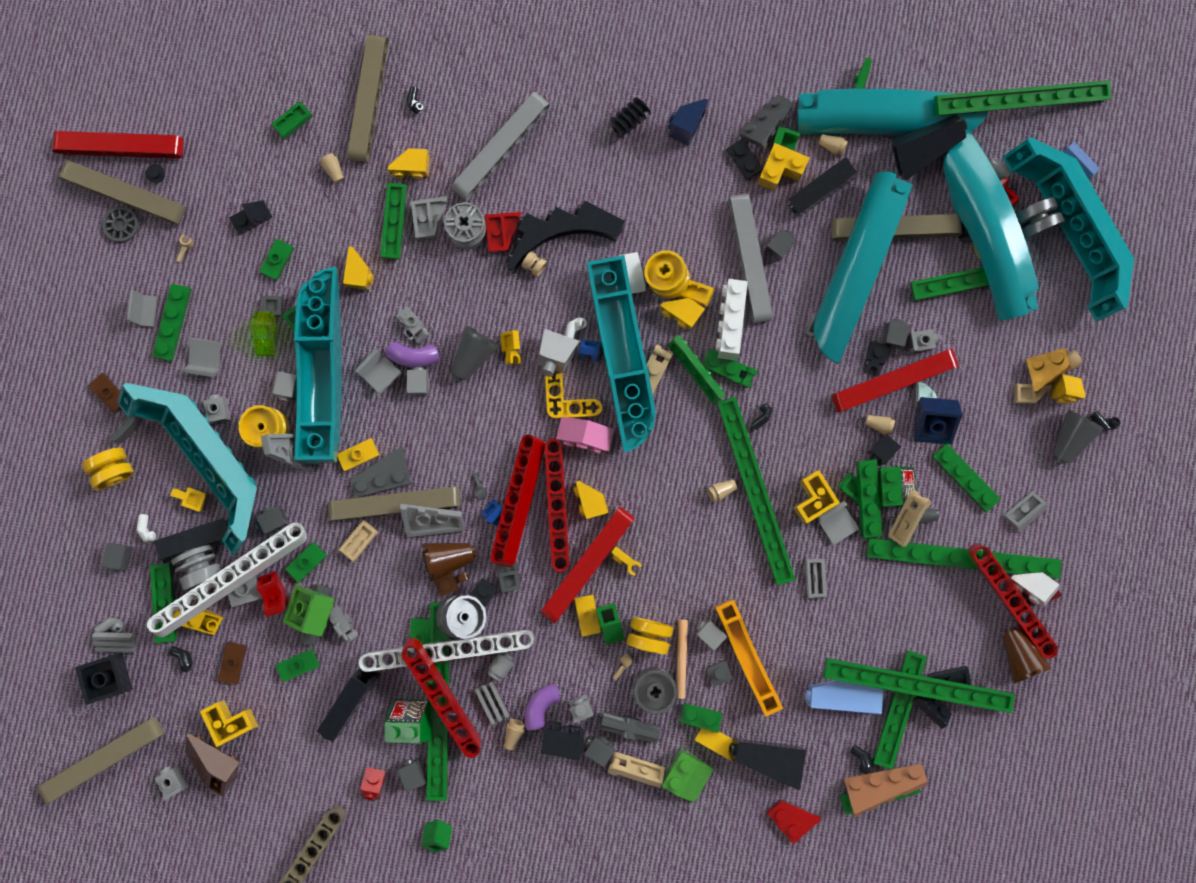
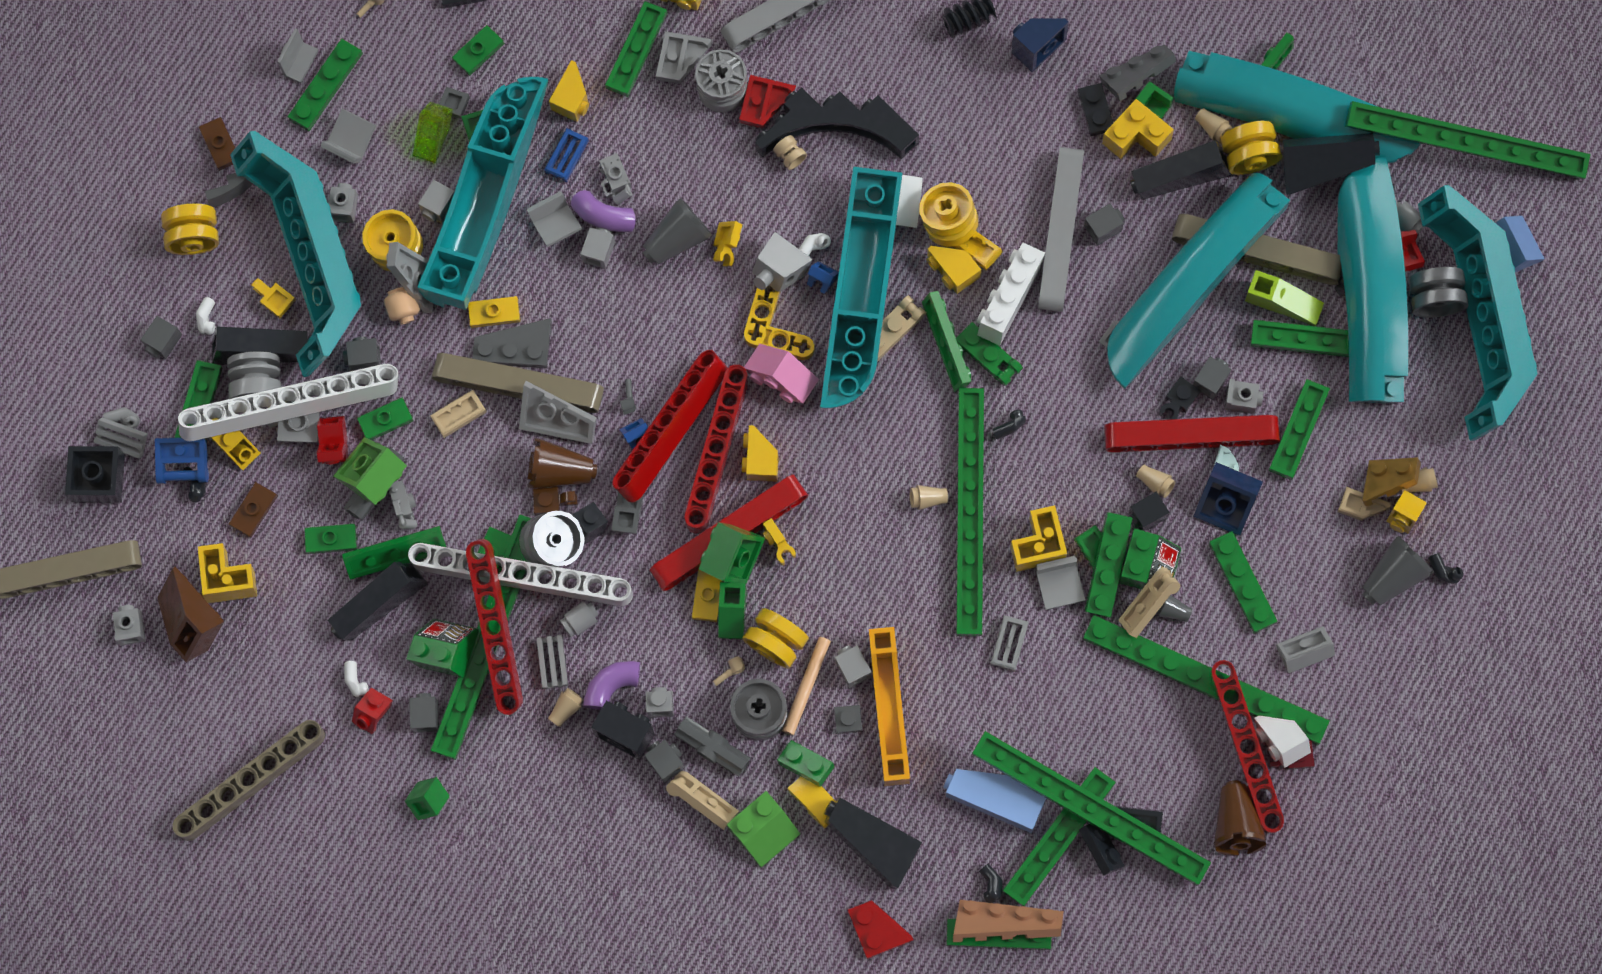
camera: 25 degrees right, 10 degrees down
(153, 644) = (180, 451): none -> blue plate
(287, 475) = (401, 306): none -> light nougat head
(347, 661) = (382, 555): none -> green plate
(350, 767) = (350, 675): none -> white arm
(368, 334) = (558, 172): none -> blue tile
(595, 584) = (731, 553): none -> green slope
(869, 153) = (1251, 147): none -> yellow wheel
(926, 258) = (1283, 298): none -> lime slope
(969, 352) = (1299, 429): none -> green plate

